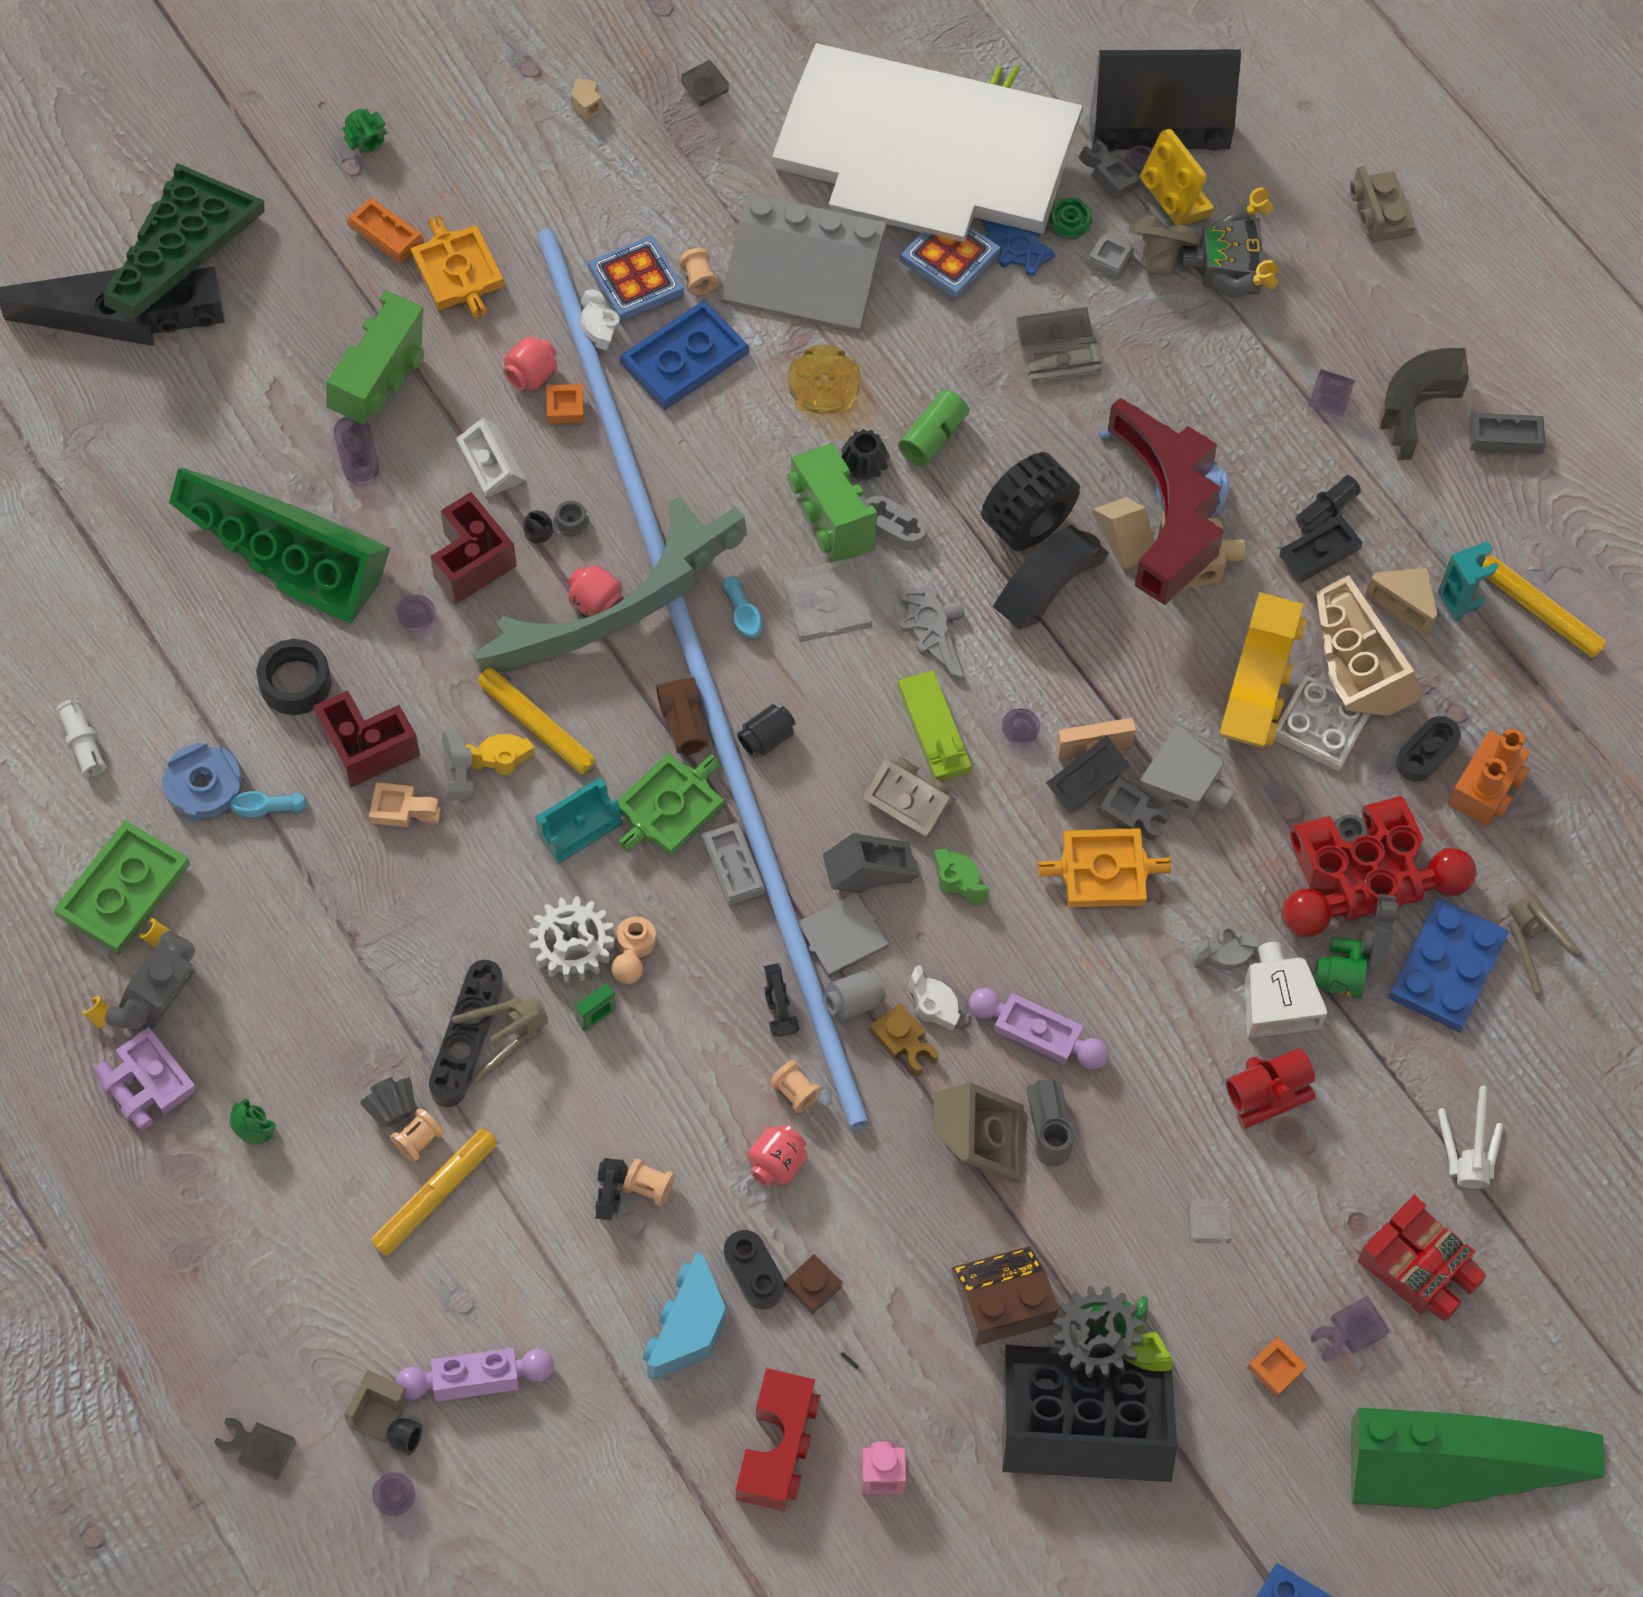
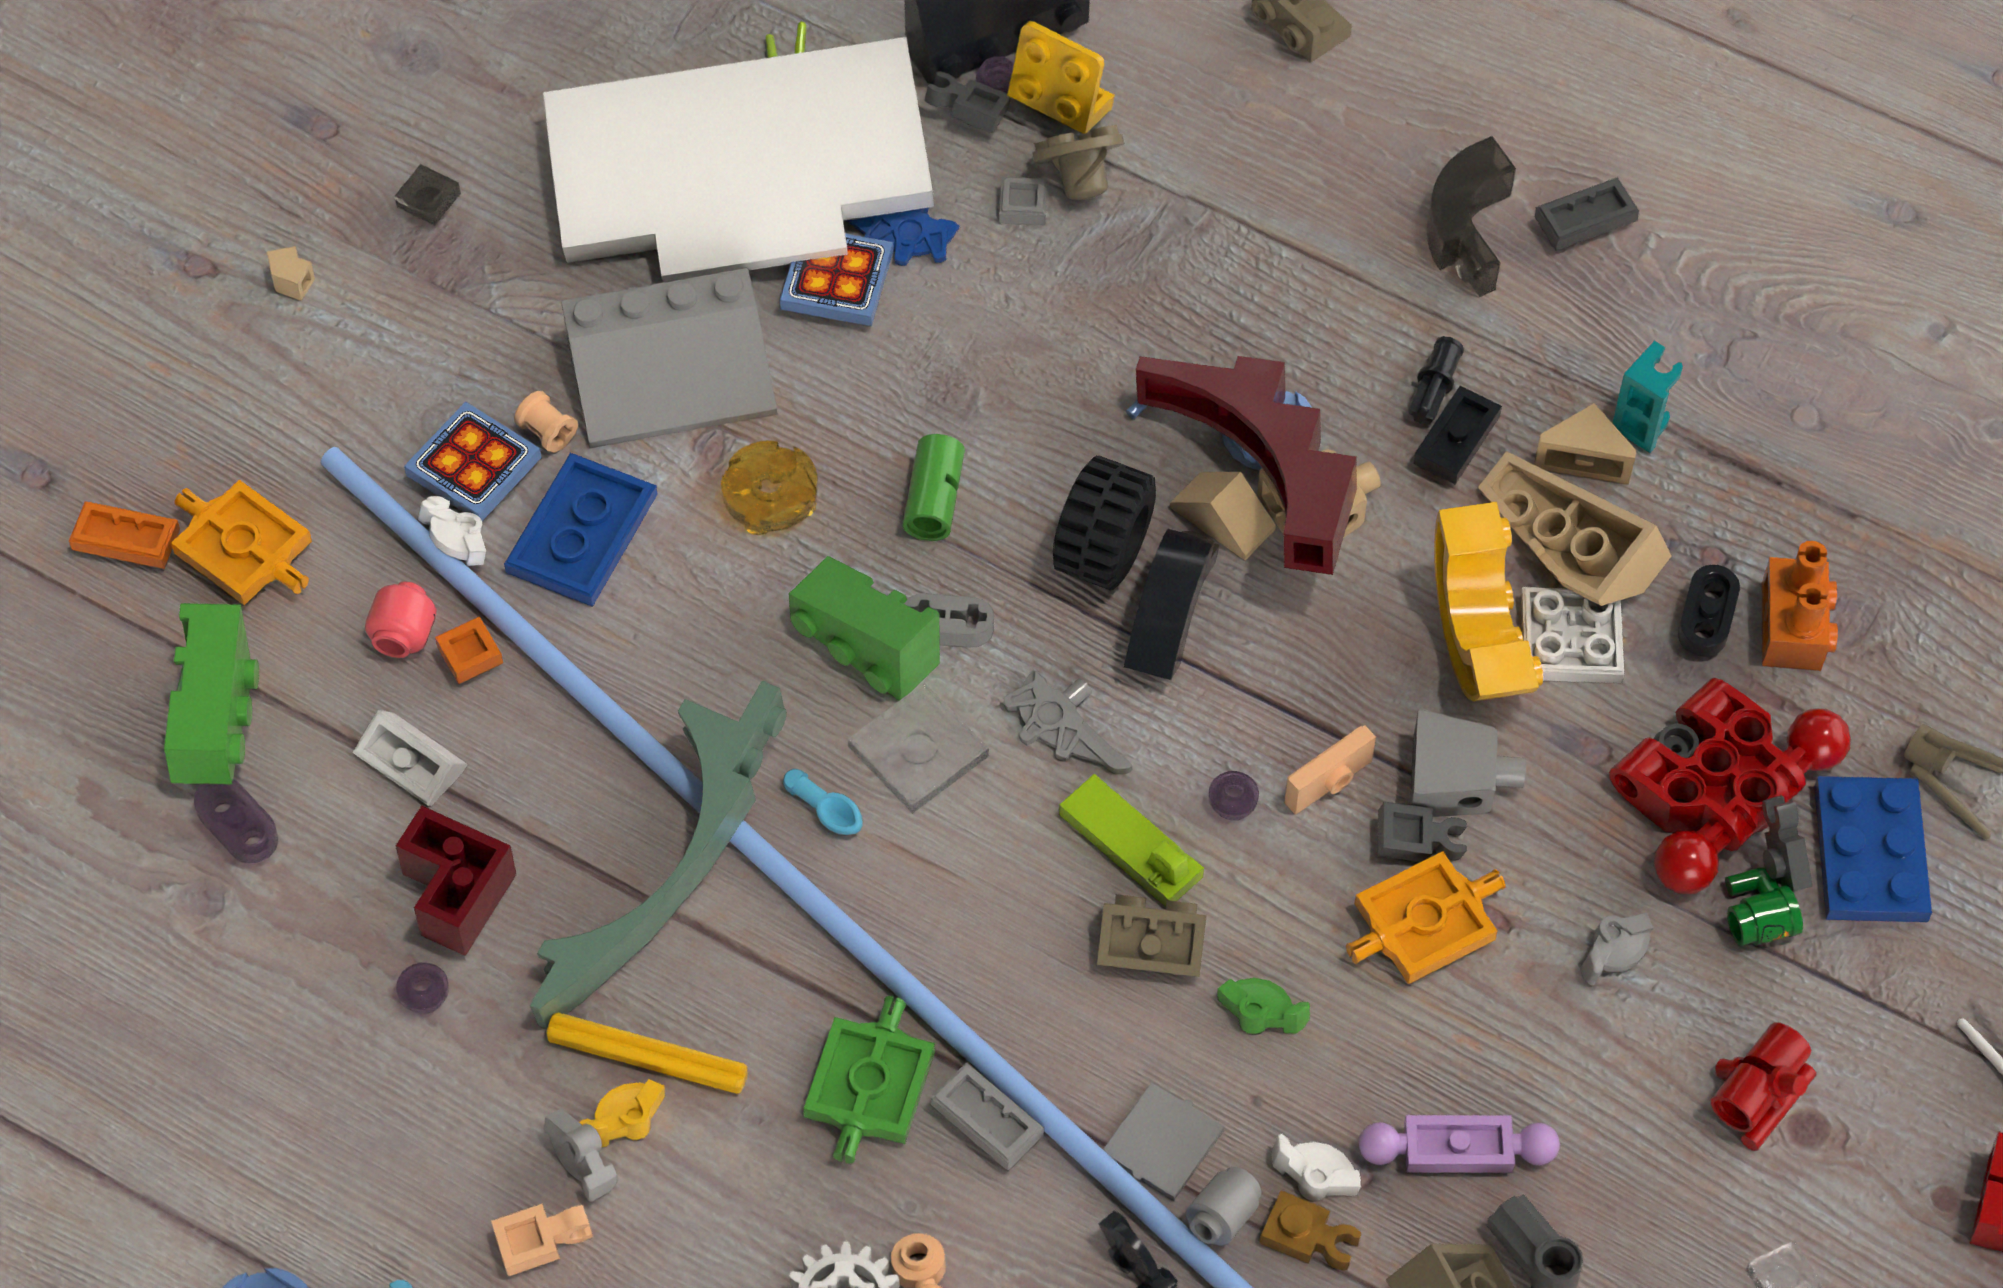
camera: 25 degrees left, 5 degrees down
(291, 546) = (220, 975): green wedge -> none
(291, 651) = (303, 1101): black tyre -> none
(362, 745) = (450, 1183): dark red brick -> none
(364, 130) = (32, 423): green gear -> none
(534, 530) = (511, 818): black hinge -> none
(569, 510) = (550, 775): dark grey plate -> none
(578, 820) = (770, 1152): teal hinge -> none
(594, 590) = (634, 862): coral head -> none
(682, 706) = (817, 952): reddish brown piece -> none
(766, 730) = (938, 936): black brick -> none
(865, 454) = (871, 551): black piece -> none
(868, 862) = (1150, 1039): dark grey arch -> none
(1058, 345) = (1023, 329): clear smoke slope -> none
(1074, 209) = (959, 164): green plate -> none
(1088, 774) = (1348, 814): black plate -> none
(1233, 251) = (1167, 137): torso -> none
(1281, 995) = (1711, 972): white torso -> none
(1331, 393) = (1368, 251): clear purple tile -> none
(1545, 608) = (1750, 395): yellow axle -> none

